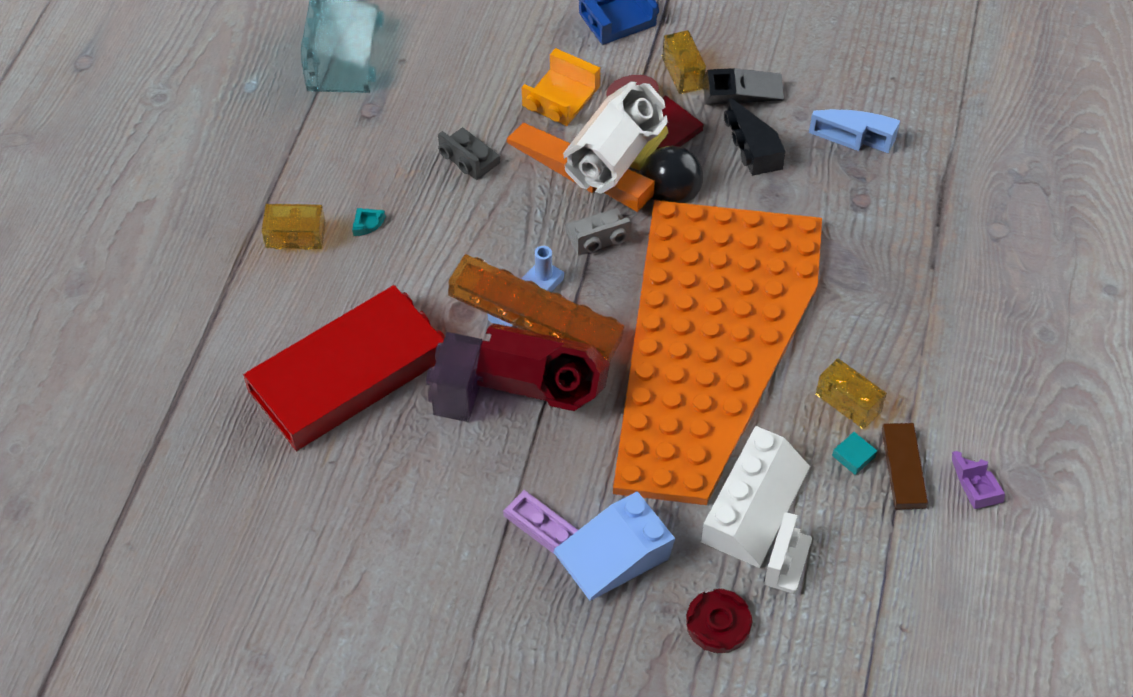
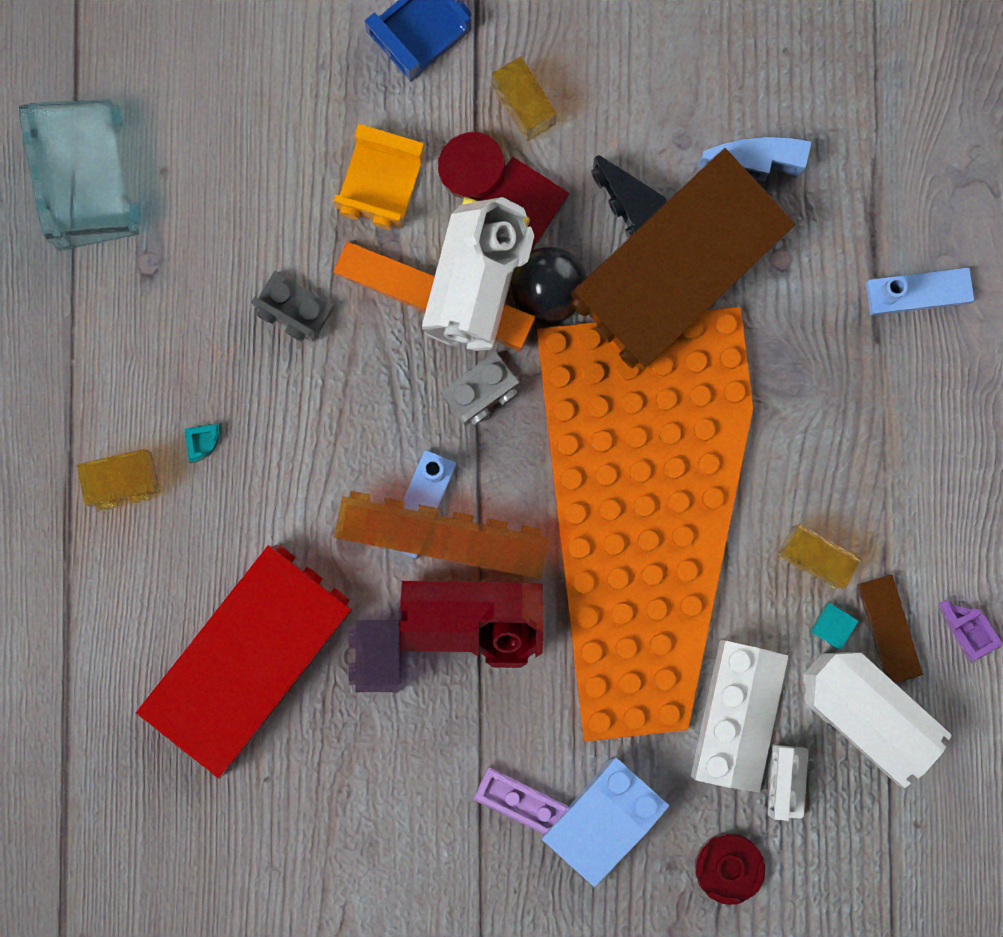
camera: 20 degrees left, 30 degrees up
(741, 86) = (605, 125): black slope -> none
(779, 167) = (681, 260): none -> reddish brown brick
(876, 512) = (874, 715): none -> white brick
(970, 239) = (919, 291): none -> light blue piece

